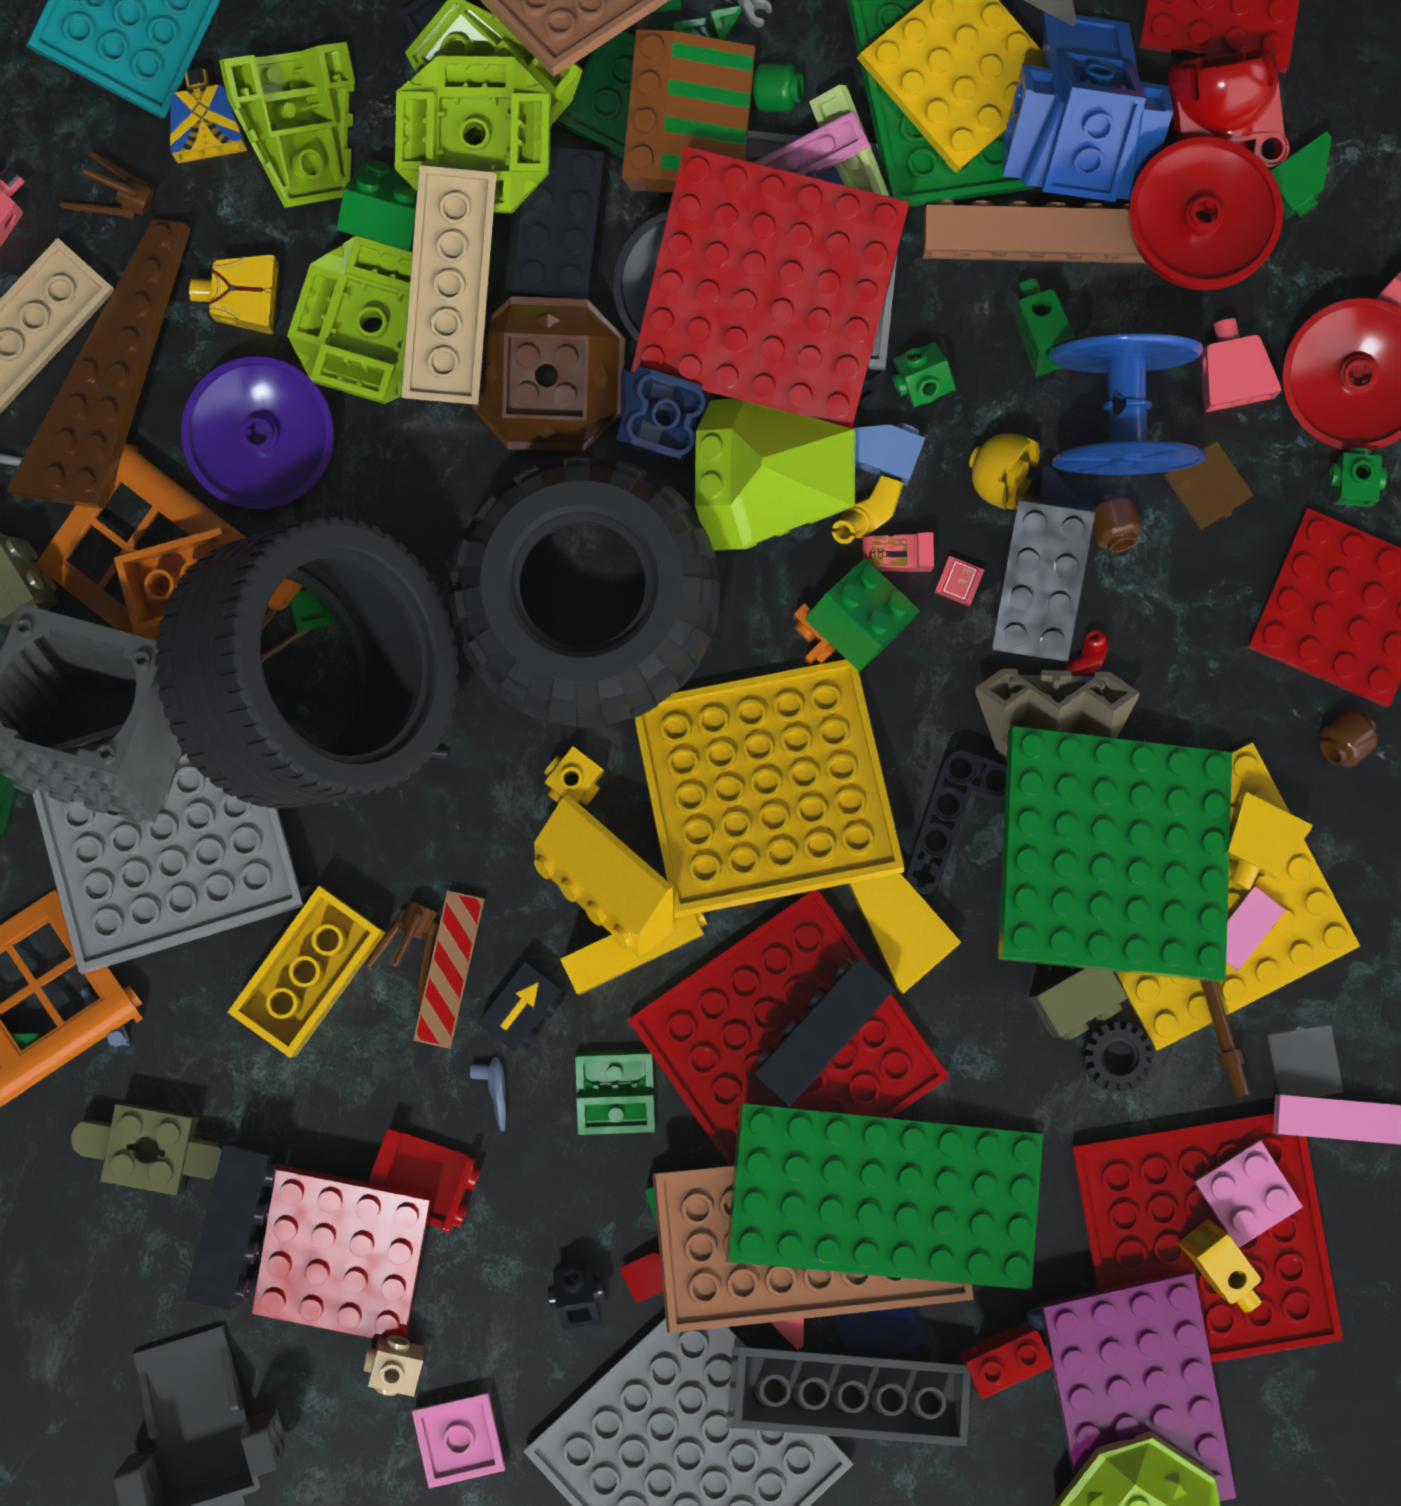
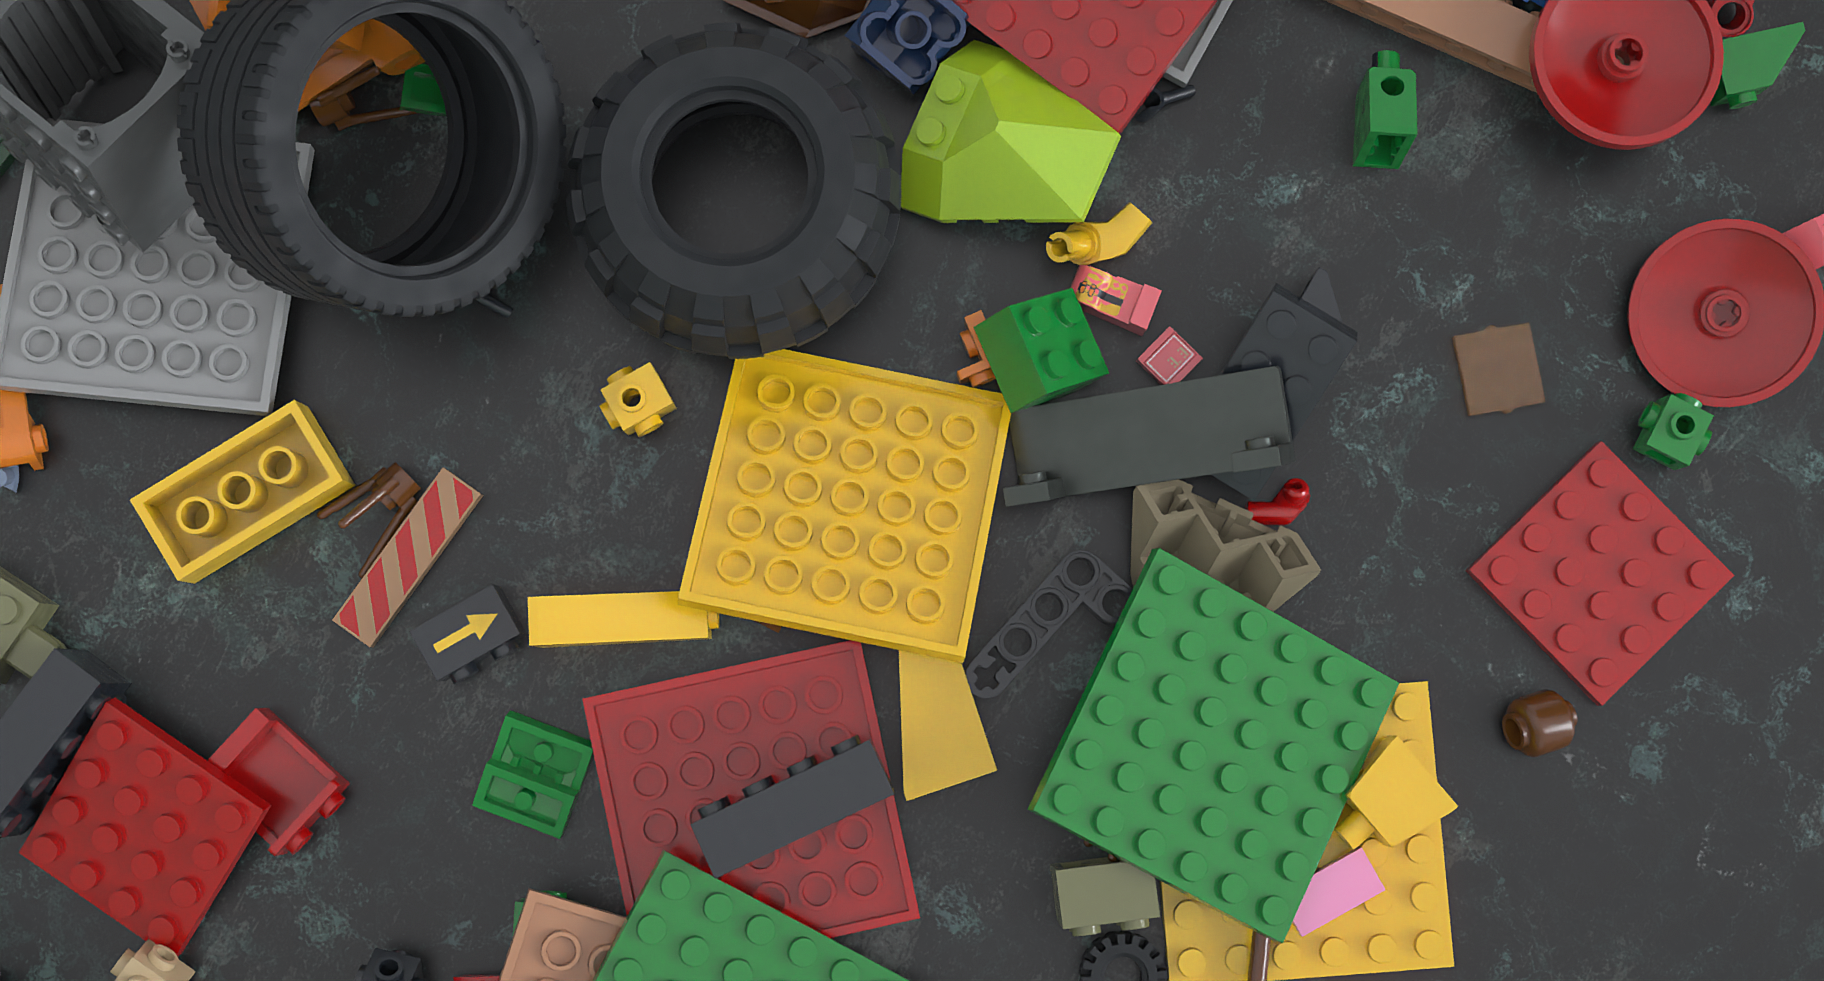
camera: 20 degrees right, 0 degrees up
(496, 1084) = (404, 710): sand blue bar -> none
(604, 878) = (618, 527): yellow slope -> none
(888, 450) = (1149, 178): medium blue slope -> none
(922, 374) = (1225, 109): green brick -> none
(970, 645) = (1151, 435): none -> pearl dark grey bracket
(1002, 466) = (1273, 250): yellow cylinder -> none
(1115, 523) = (1374, 367): reddish brown head -> none
(1126, 362) = (1464, 183): blue piece -> none
(1236, 370) = (1585, 250): coral torso -> none

